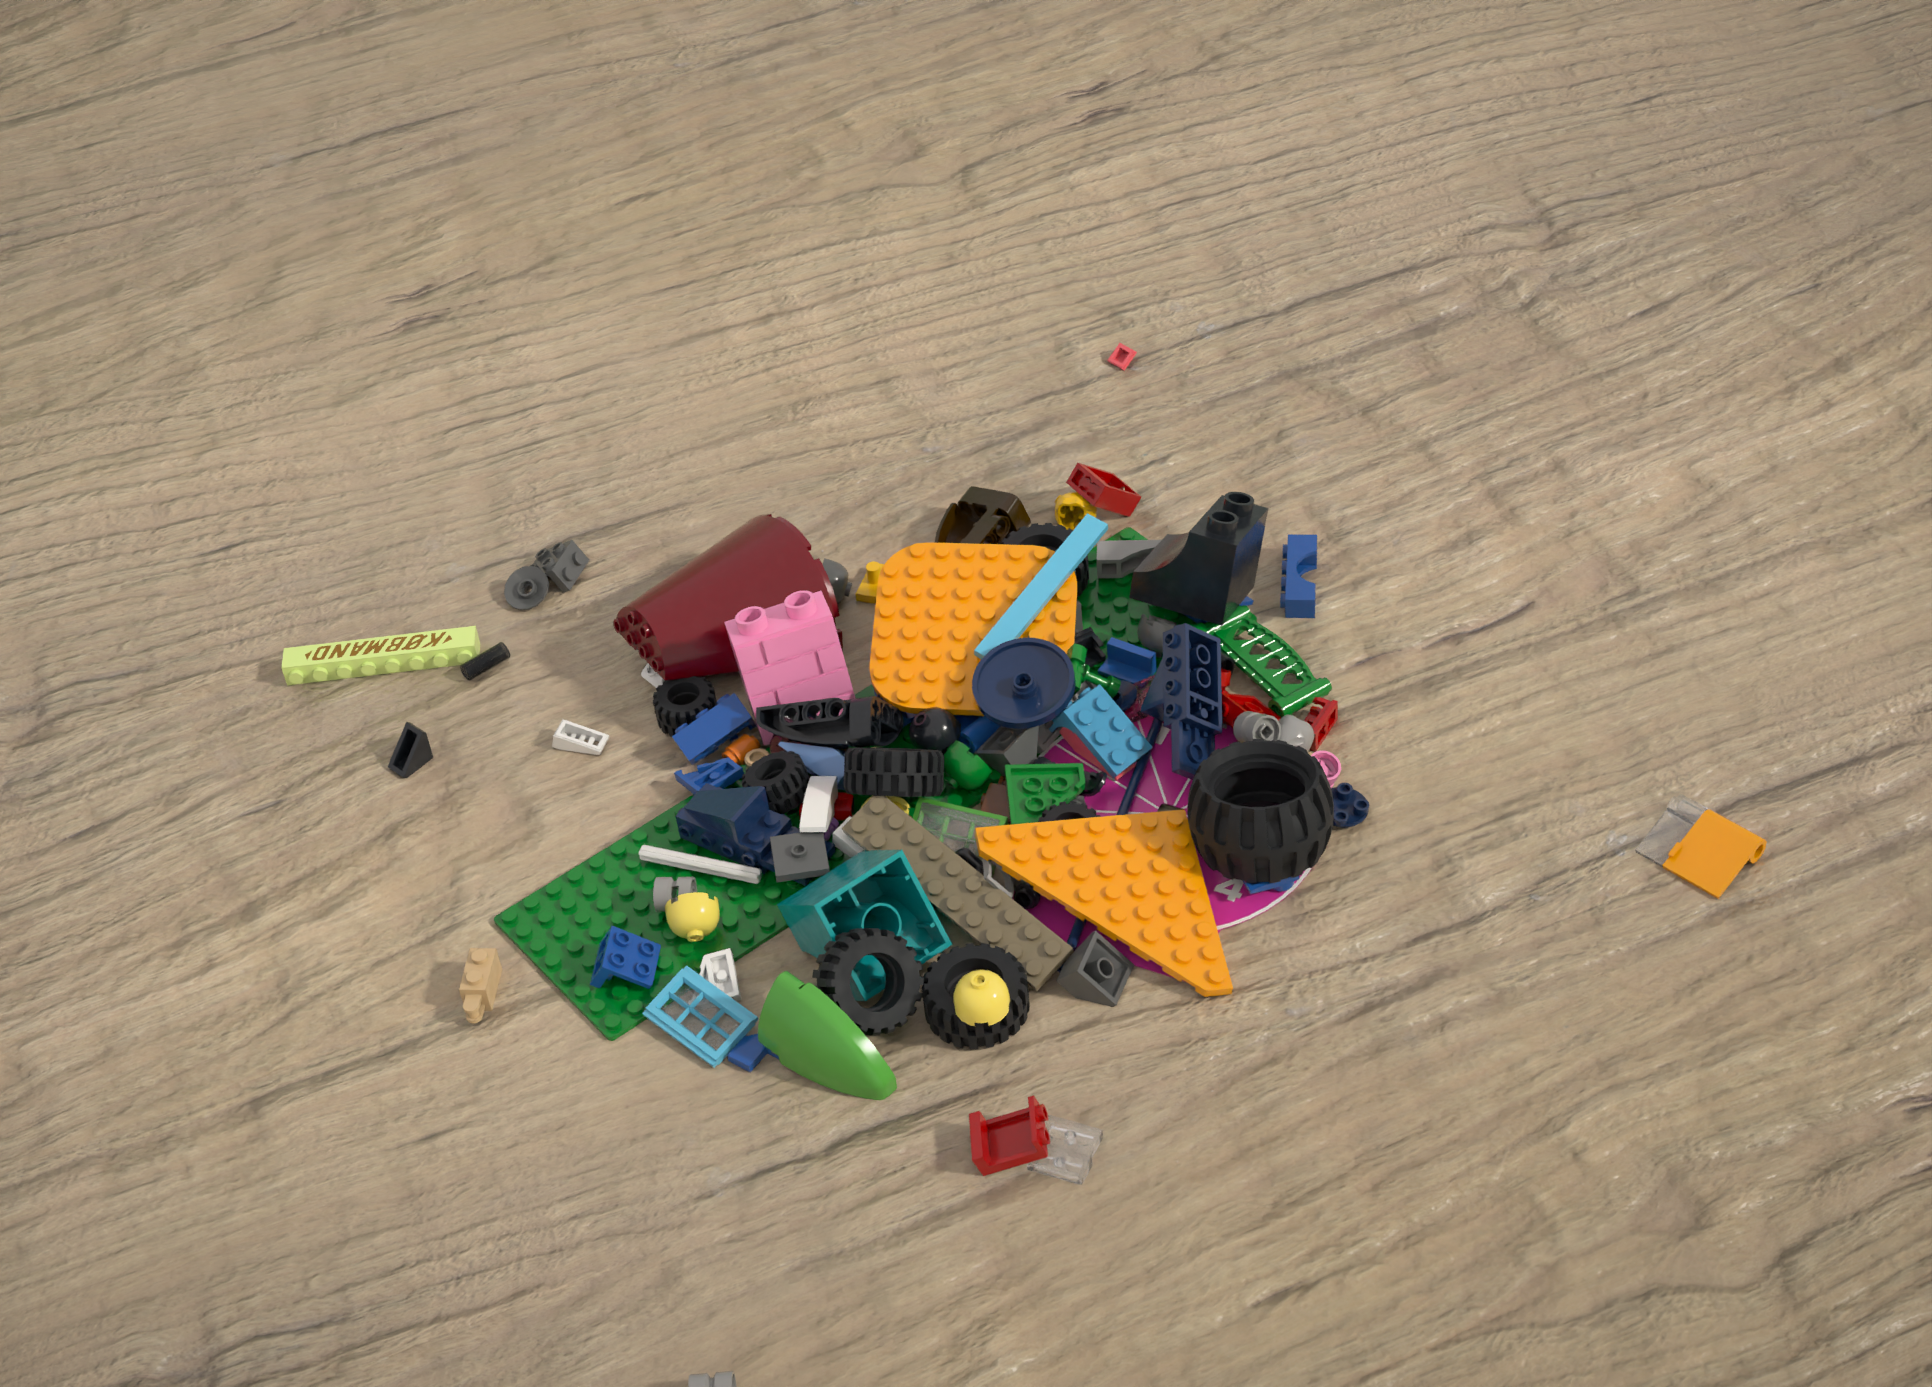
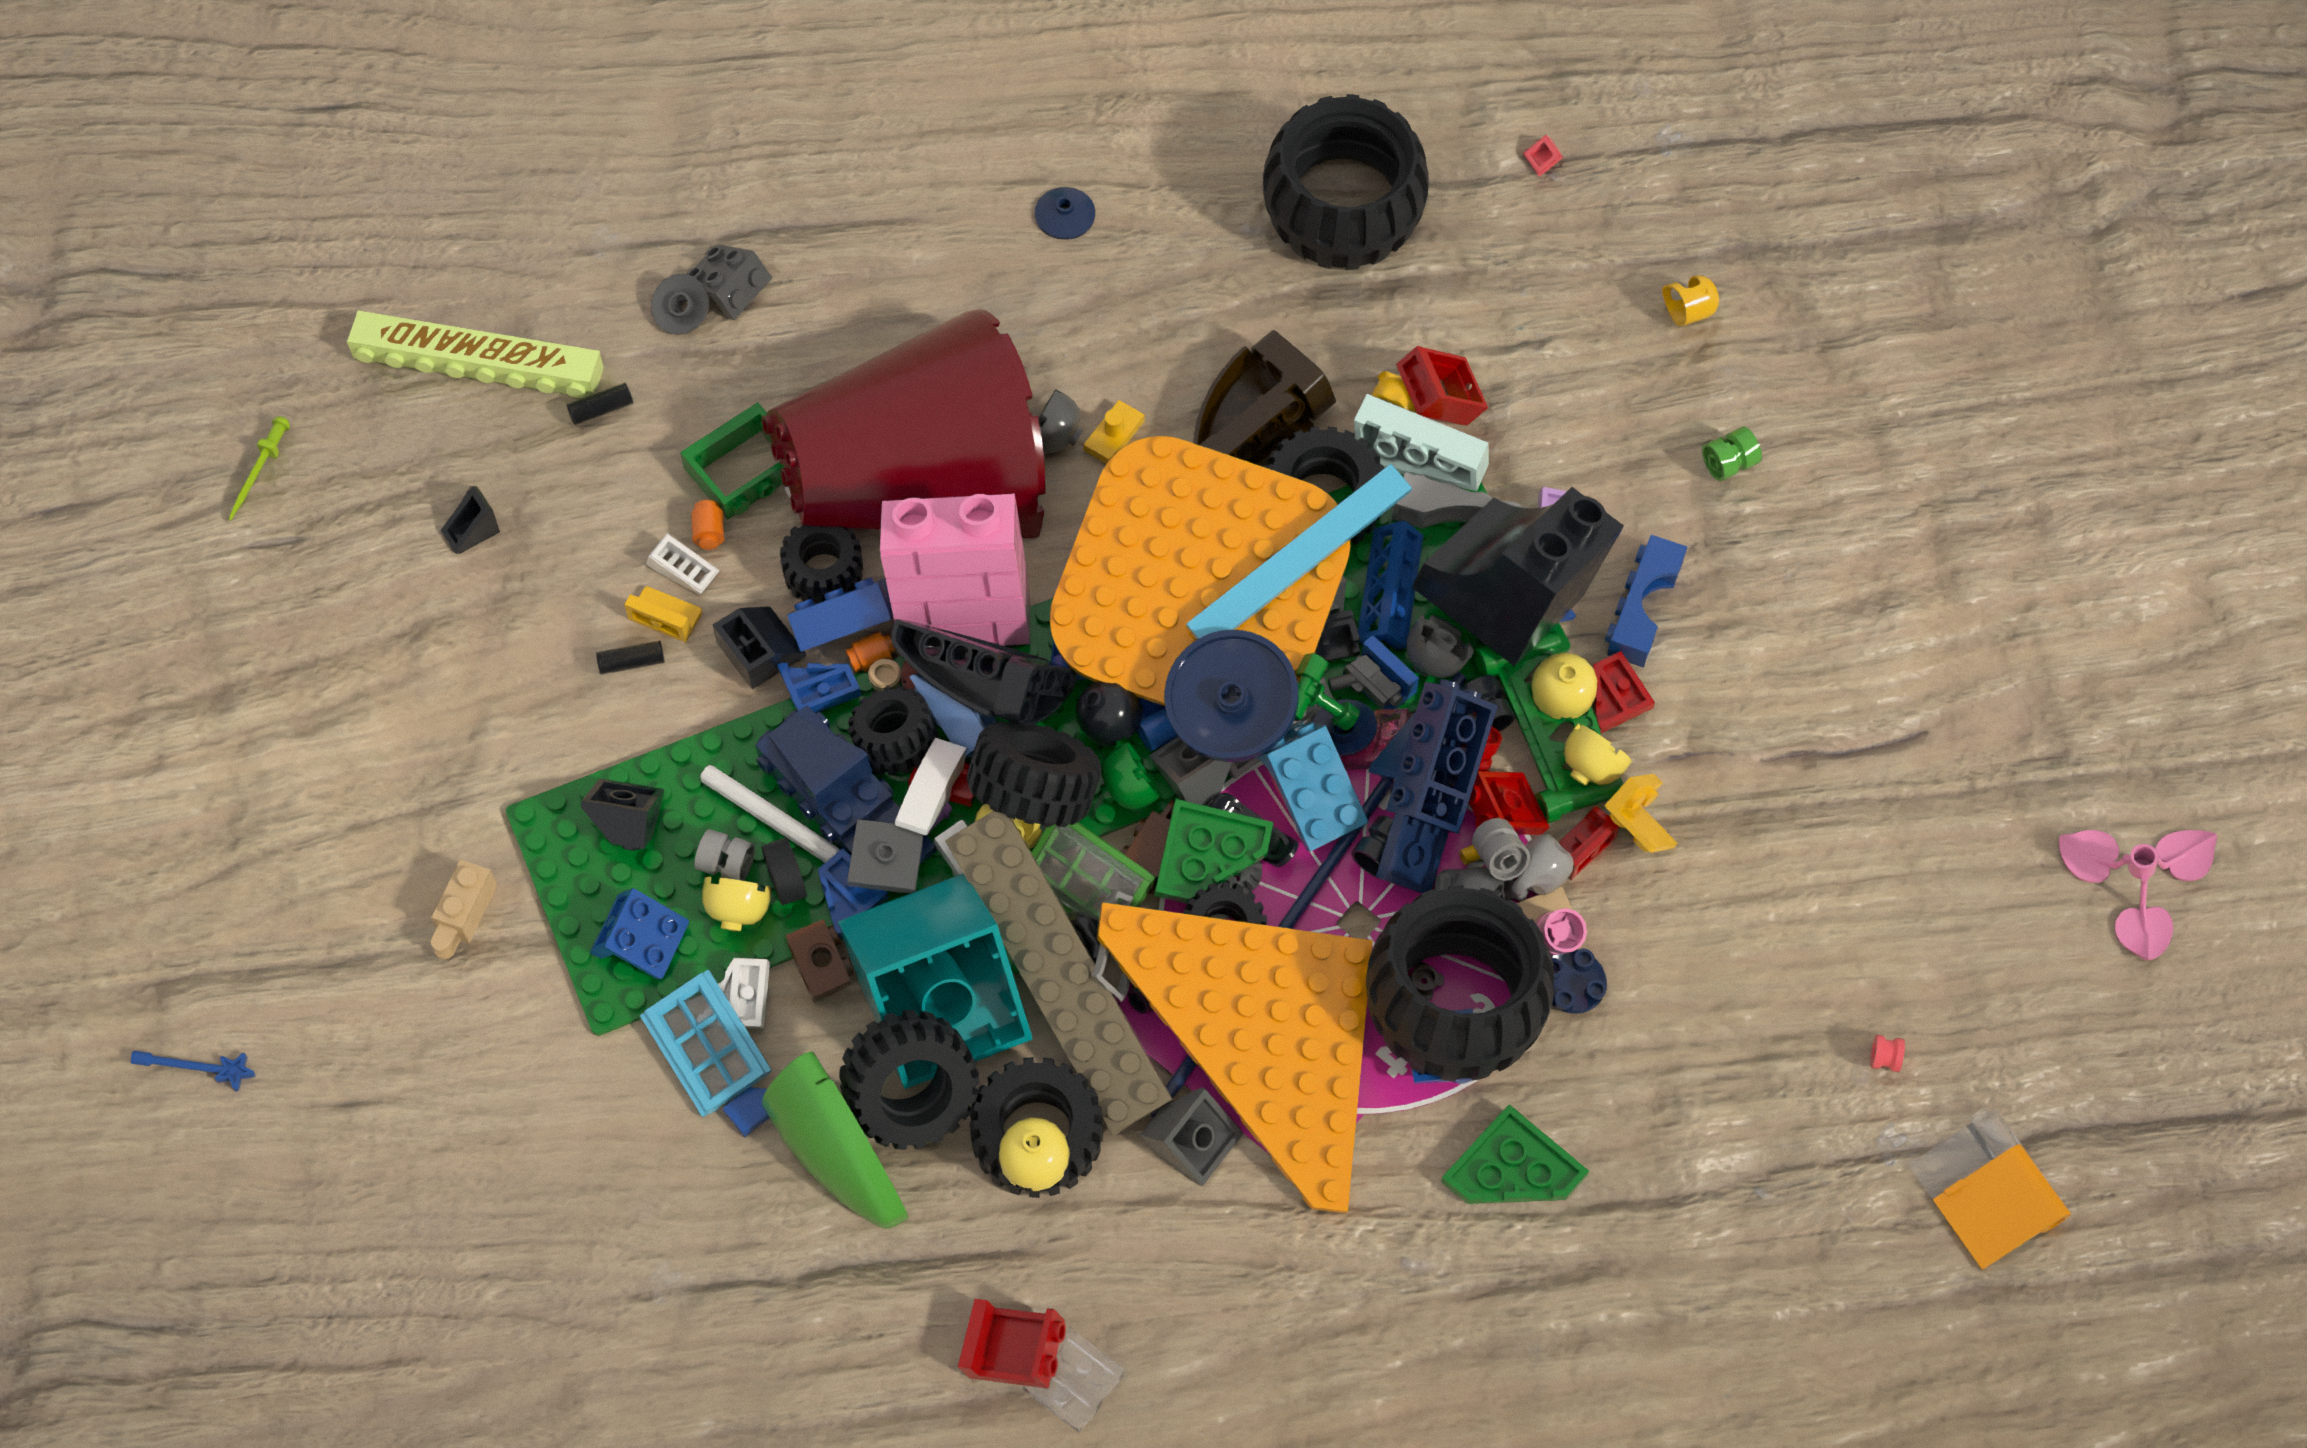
camera: 10 degrees right, 20 degrees up
(238, 752) = (267, 448): none -> lime sword
(325, 1139) = (230, 1070): none -> blue piece
(565, 793) = (636, 662): none -> black piece
(574, 771) = (663, 613): none -> yellow panel
(588, 655) = (718, 444): none -> green window
(589, 890) = (624, 812): none -> black slope
(591, 709) = (707, 524): none -> orange brick
(651, 767) = (756, 643): none -> black slope
(726, 886) = (784, 871): none -> black tyre
(772, 892) = (844, 899): none -> blue wing
(773, 954) = (819, 980): none -> reddish brown brick
(791, 472) = (1068, 222): none -> dark blue dish
(989, 394) = (1353, 131): none -> black tyre
(1116, 605) = (1397, 580): none -> blue fence
(1121, 668) = (1367, 677): none -> dark grey piece
(1122, 521) = (1421, 445): none -> light aqua wedge
(1161, 763) = (1370, 849): none -> black wheel
(1262, 631) = (1564, 686): none -> light yellow cylinder
(1266, 402) = (1697, 300): none -> yellow helmet
(1302, 663) = (1593, 757): none -> light yellow cylinder
(1303, 632) = (1619, 692): none -> red wing
(1325, 479) = (1728, 455): none -> bright green wheel
(1340, 682) = (1628, 813): none -> yellow bracket
(1346, 925) = (1514, 1165): none -> green plate
(1590, 785) = (1887, 1053): none -> coral wheel
(1749, 620) = (2185, 852): none -> bright pink plant

